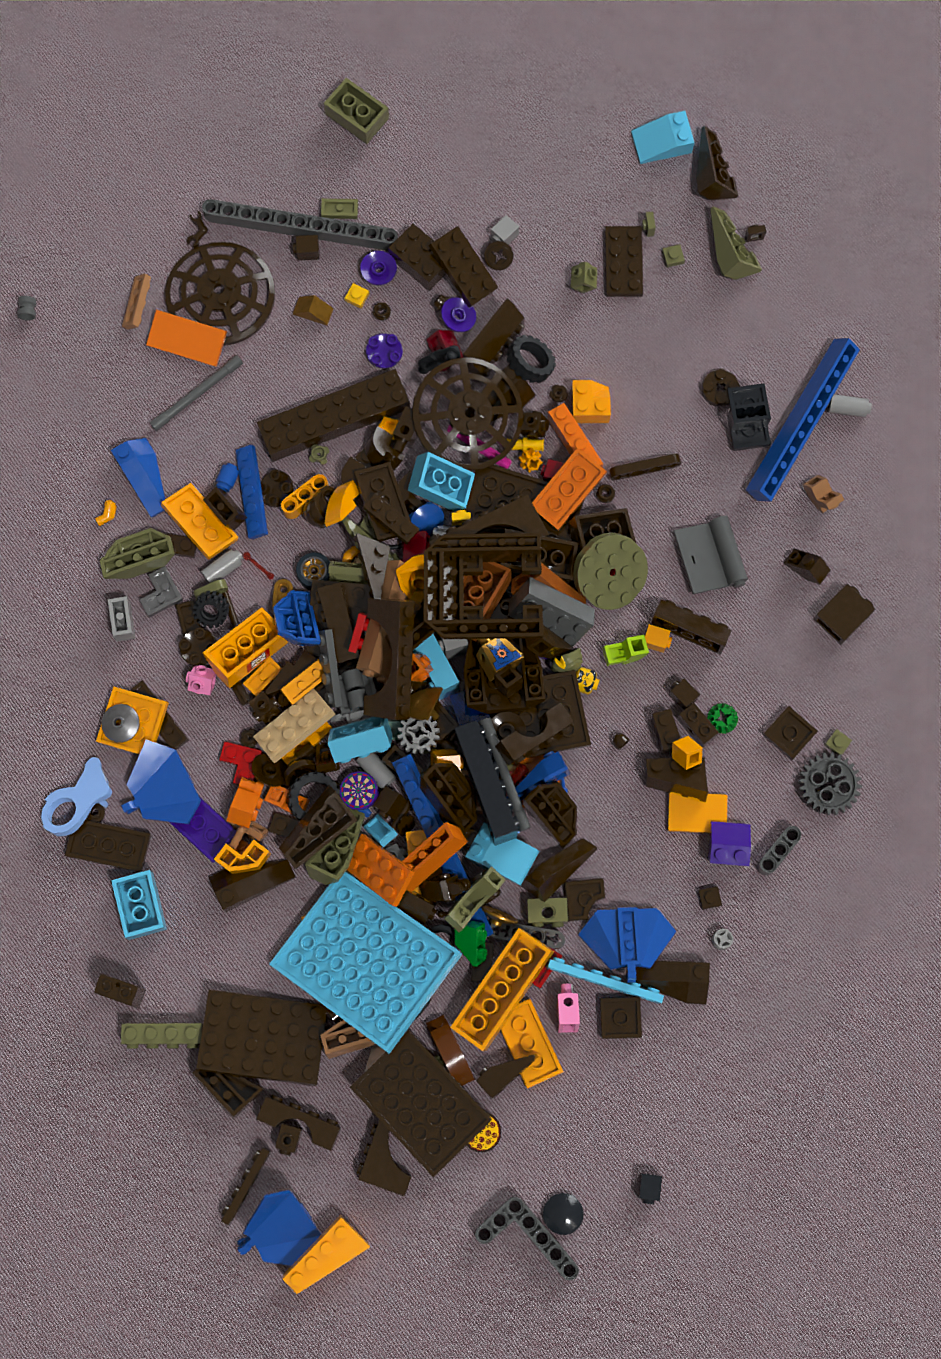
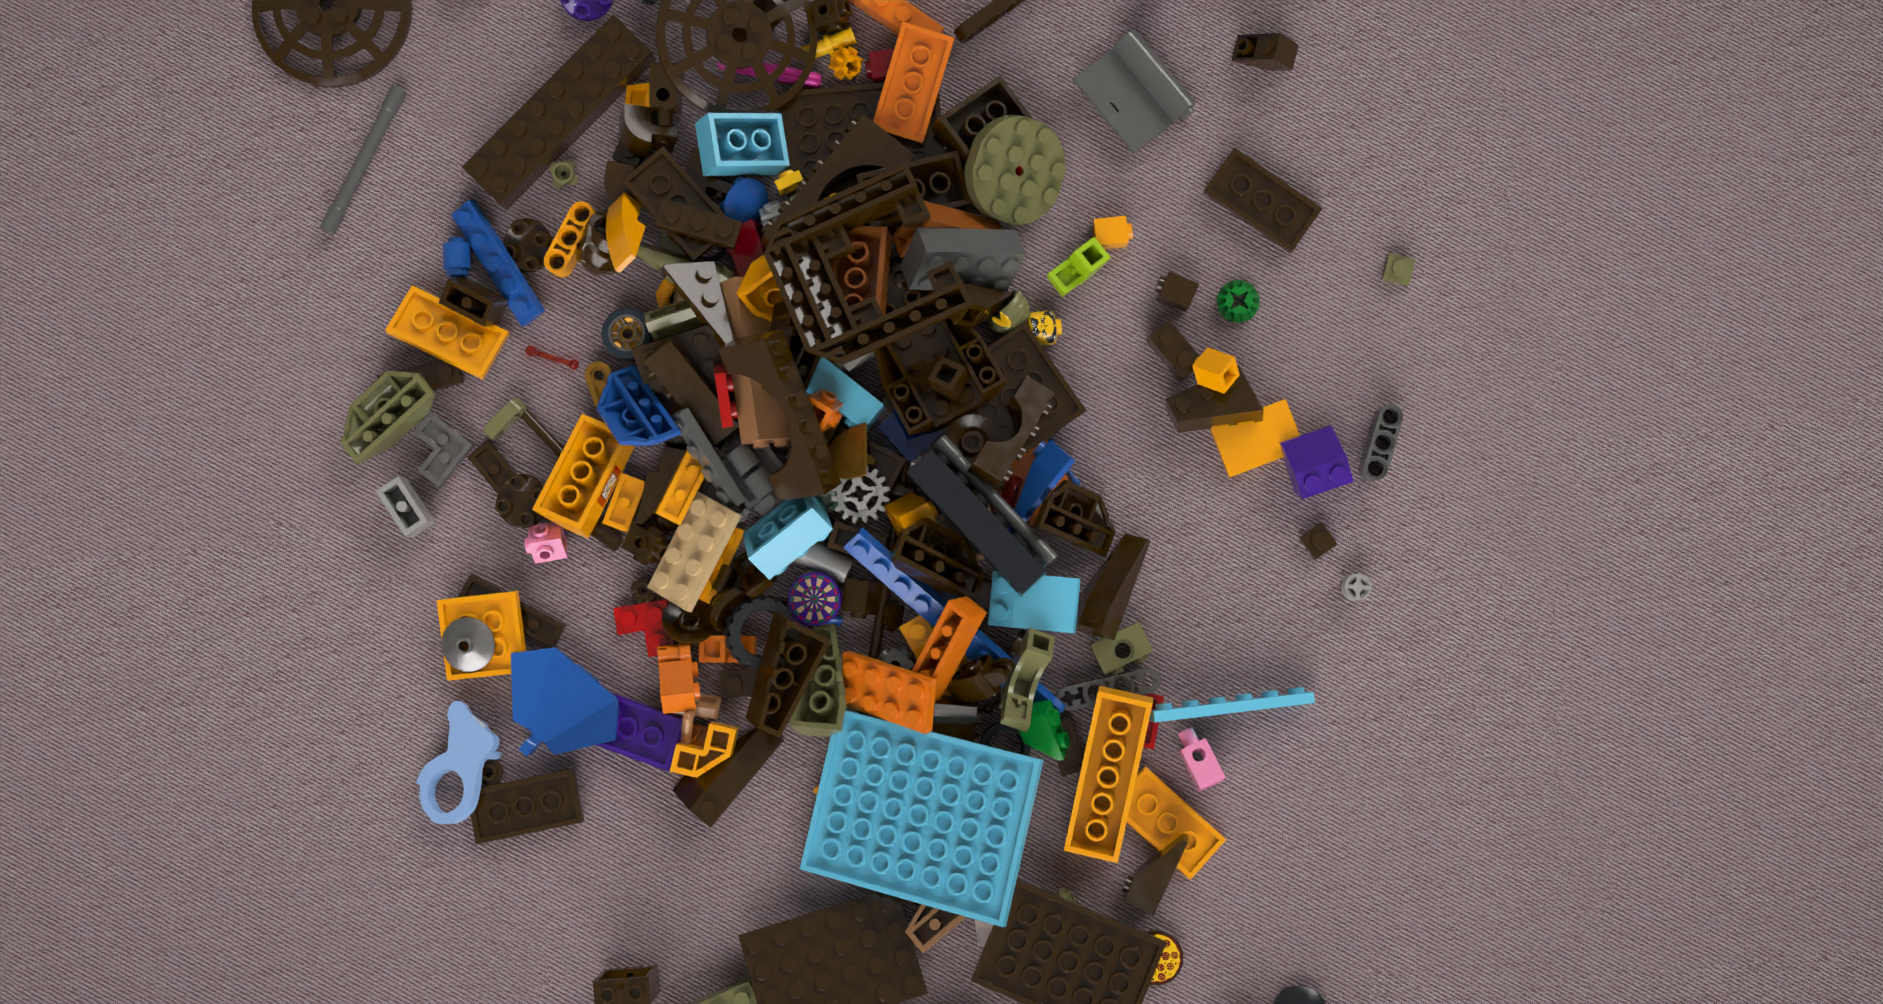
camera: 20 degrees left, 10 degrees up
(26, 308) = (81, 139): dark grey wheel -> none
(108, 514) = (323, 372): light orange arm -> none
(136, 301) = (225, 68): medium nougat plate -> none
(139, 905) = (600, 866): medium azure brick -> none
(141, 468) = (336, 293): blue wedge -> none
(186, 338) = (315, 90): orange tile -> none
(211, 619) = (512, 432): black tyre -> none
(222, 566) = (505, 379): light grey brick -> none
(380, 830) = (865, 638): medium azure tile -> none
(450, 1050) = (1074, 876): reddish brown arch -> none
(496, 655) = (920, 352): torso -> none
(498, 917) = (1064, 681): pearl gold dish -> none
(582, 896) = (1156, 609): dark brown tile -> none
(605, 488) = (962, 58): dark brown plate -> none
(620, 740) = (1119, 387): dark brown hinge -> none
(620, 1018) = (1269, 741): dark brown plate -> none
(628, 937) = (1237, 638): blue panel -> none
(649, 1188) = (1393, 935): black brick -> none
(677, 979) = (1321, 662): dark brown wedge -> none
(691, 627) = (1149, 197): dark brown slope -> none
(697, 725) = (1211, 325): dark brown brick -> none
(765, 660) = (1262, 200): none -> dark brown plate
(790, 733) = (1332, 283): dark brown plate -> none
(837, 799) = (1427, 344): dark grey gear -> none
(844, 613) = (1339, 95): dark brown brick -> none

